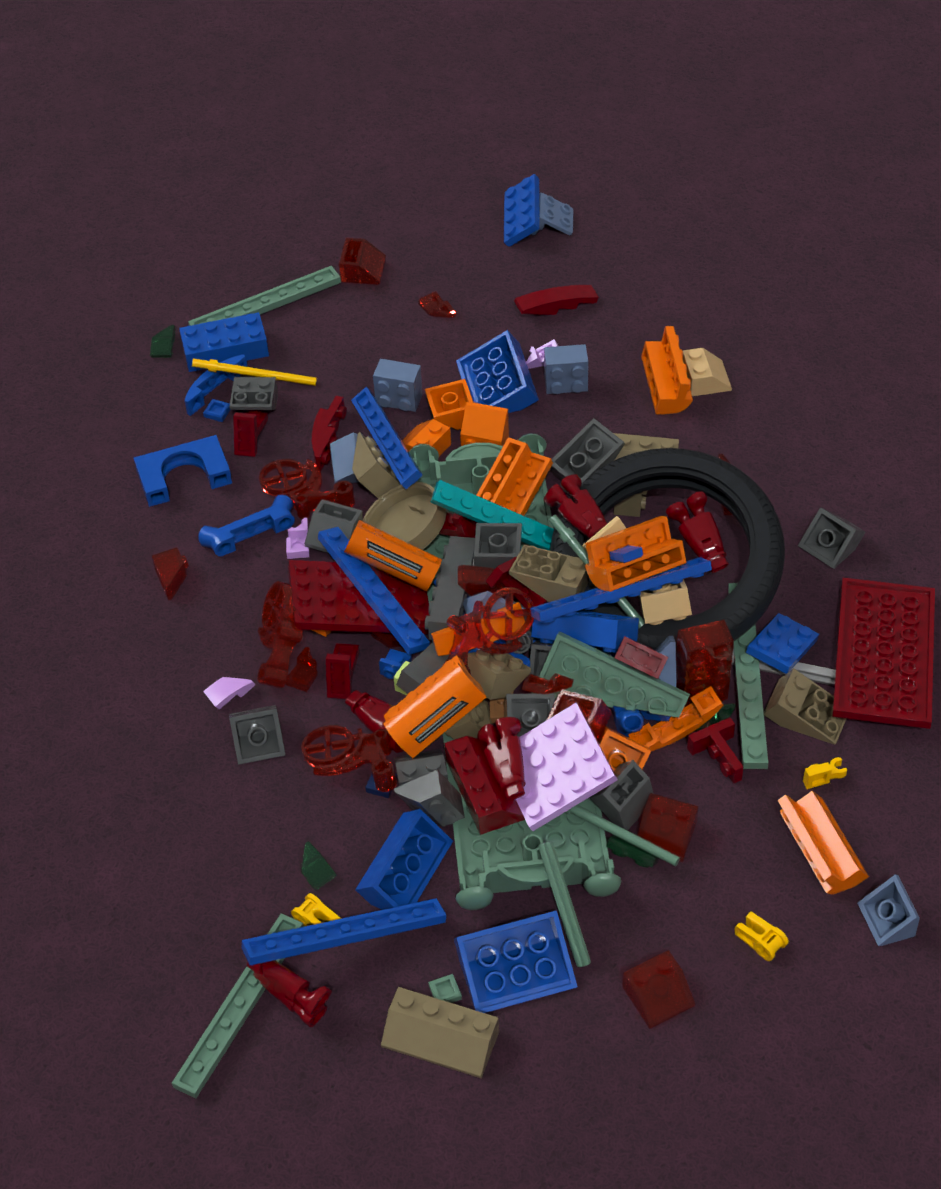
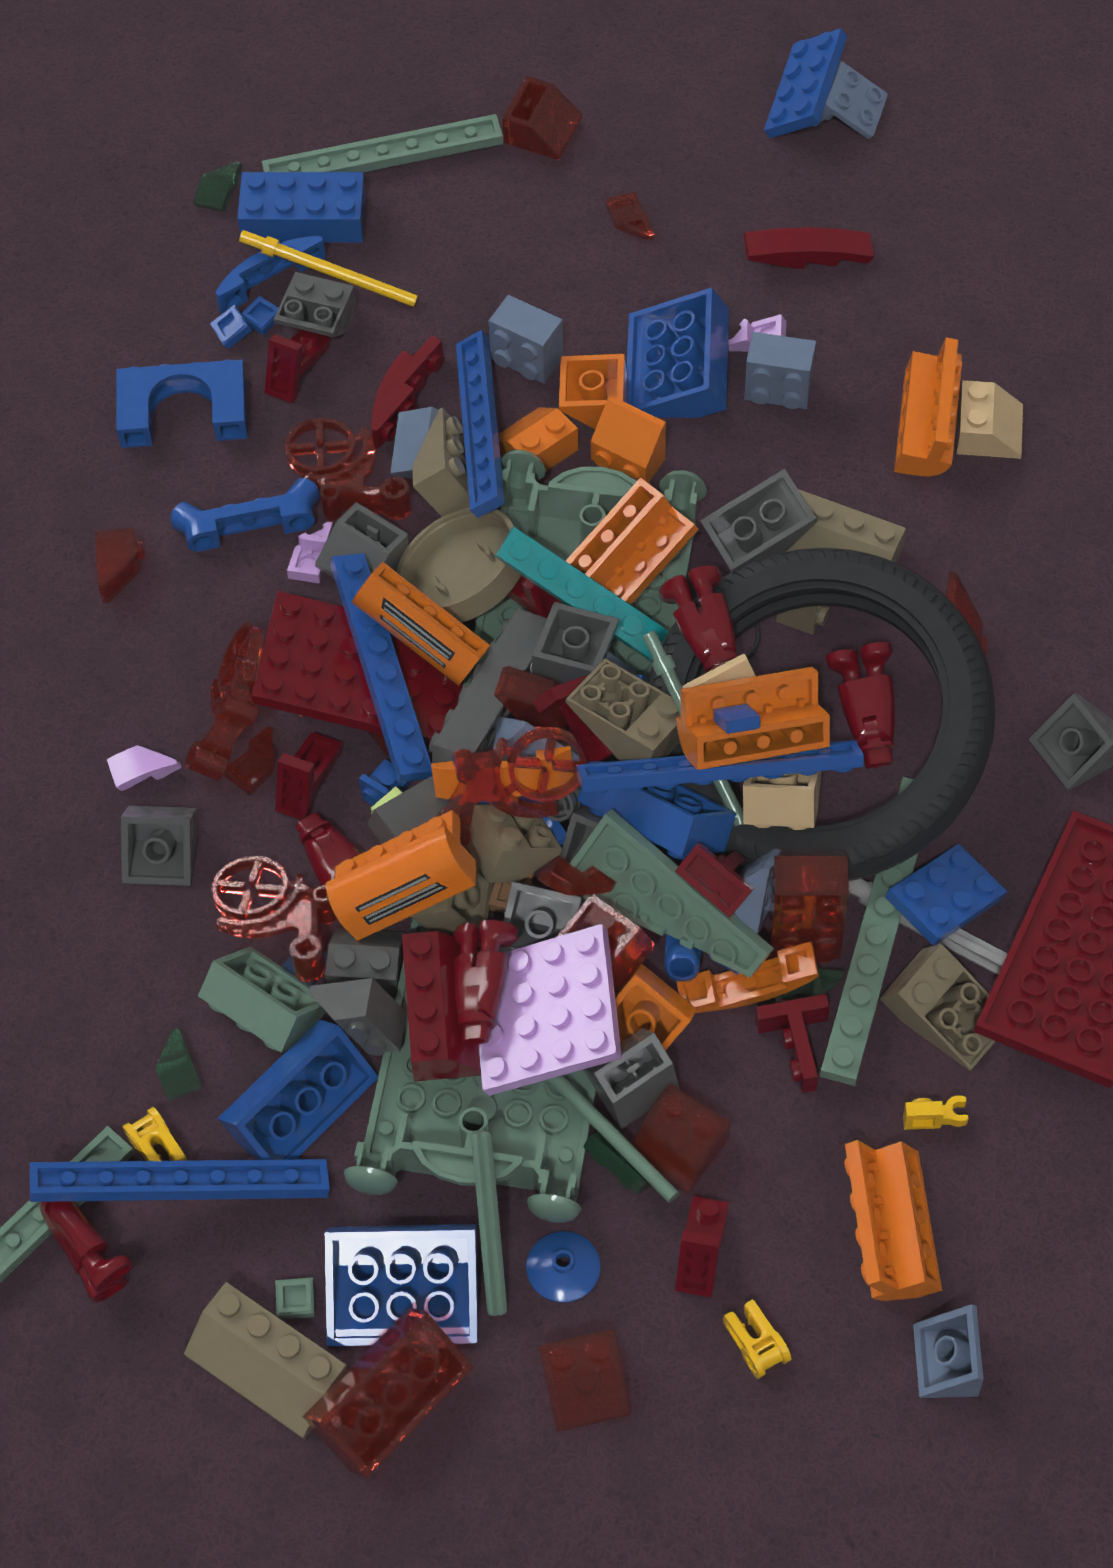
camera: 15 degrees right, 10 degrees up
(200, 420) = (231, 326): none -> blue tile
(359, 810) = (261, 998): none -> sand green slope
(532, 1028) = (388, 1392): none -> clear red brick
(617, 935) = (567, 1282): none -> blue dish
(706, 889) = (701, 1246): none -> dark red bracket

